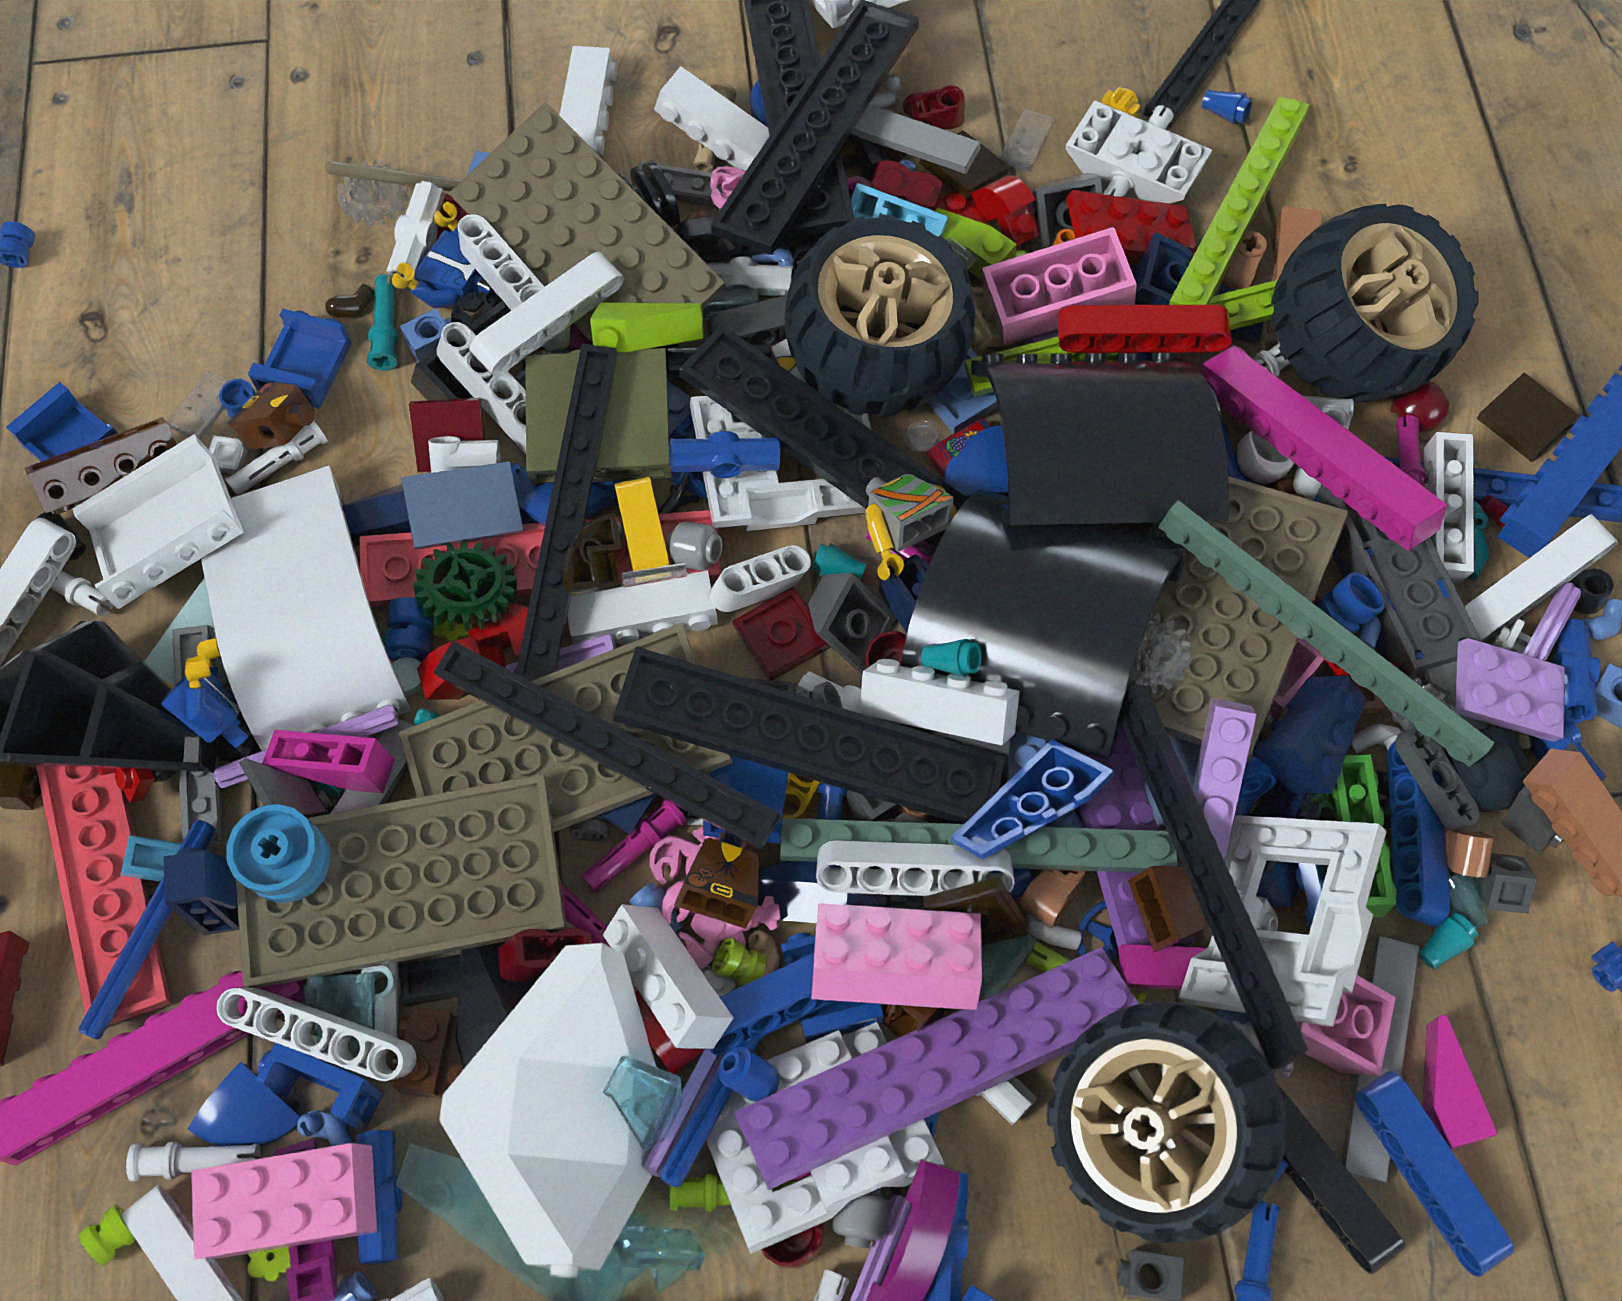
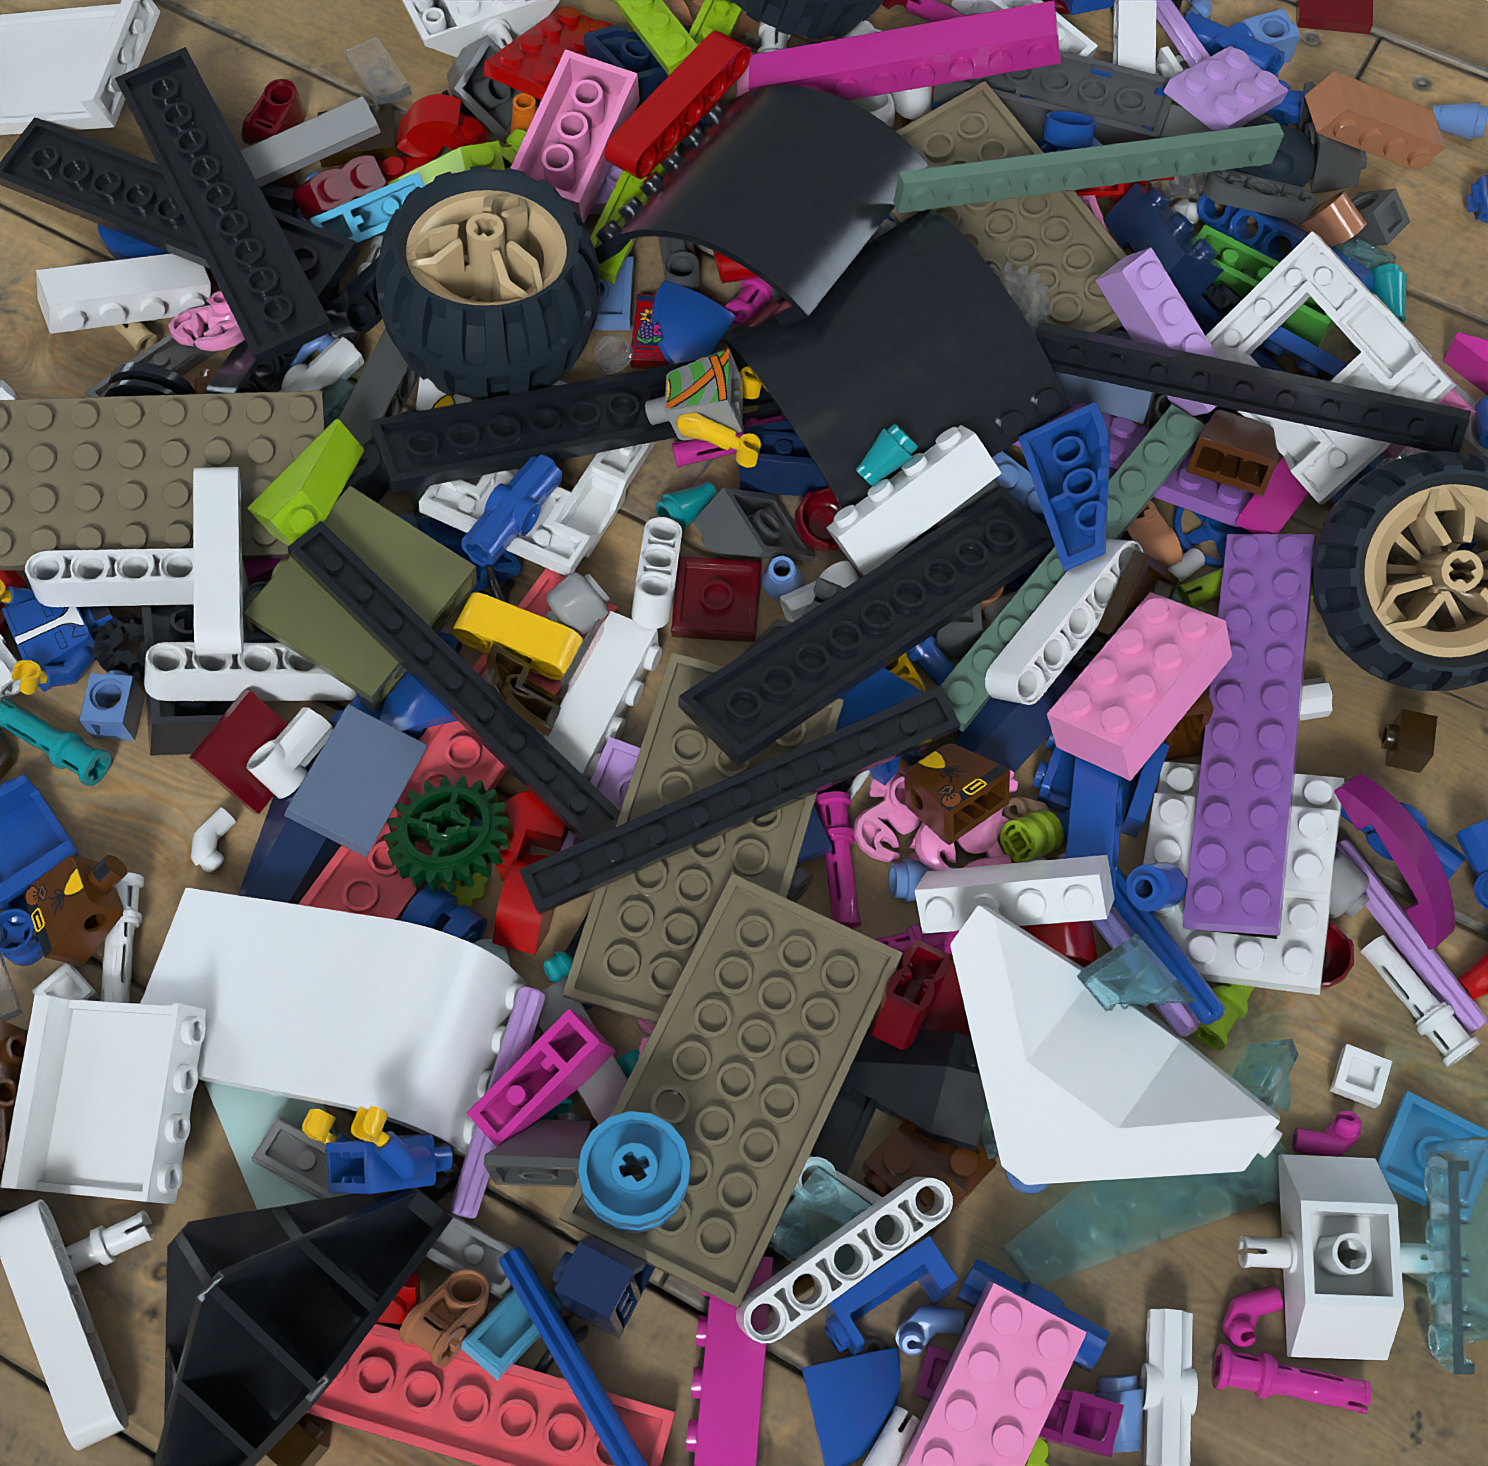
camera: 55 degrees left, 0 degrees up
(141, 816) = (448, 1316): none -> nougat piece
(380, 454) = (206, 838): none -> white arm
(825, 662) = (778, 586): none -> medium blue cone
(1033, 1200) = (1409, 740): none -> dark brown plate

